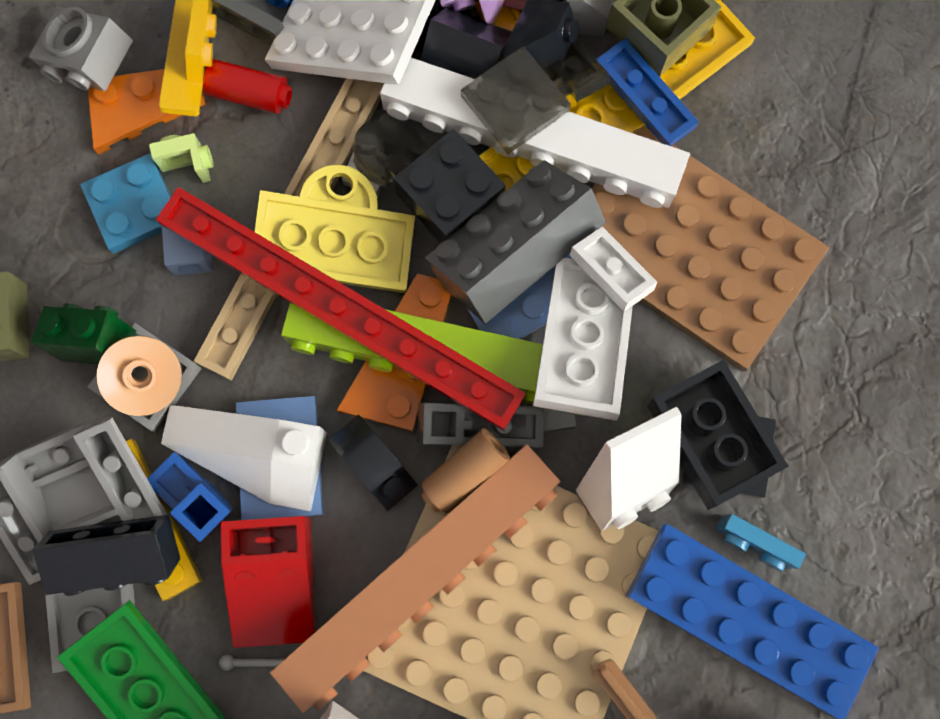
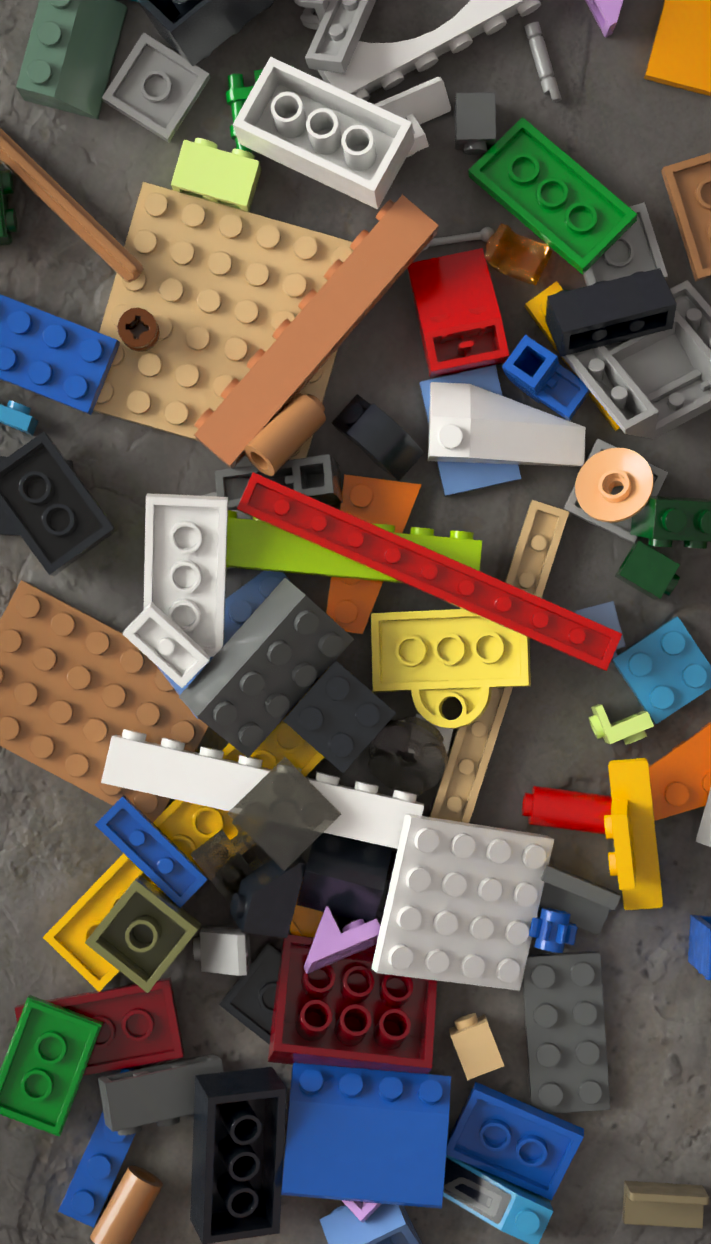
camera: 175 degrees right, 10 degrees up
(127, 294) = (649, 571): none -> dark green brick
(197, 633) = (517, 255): none -> clear orange bracket
(597, 604) = (138, 337): none -> reddish brown wheel
(634, 472) = (124, 450): white slope -> none

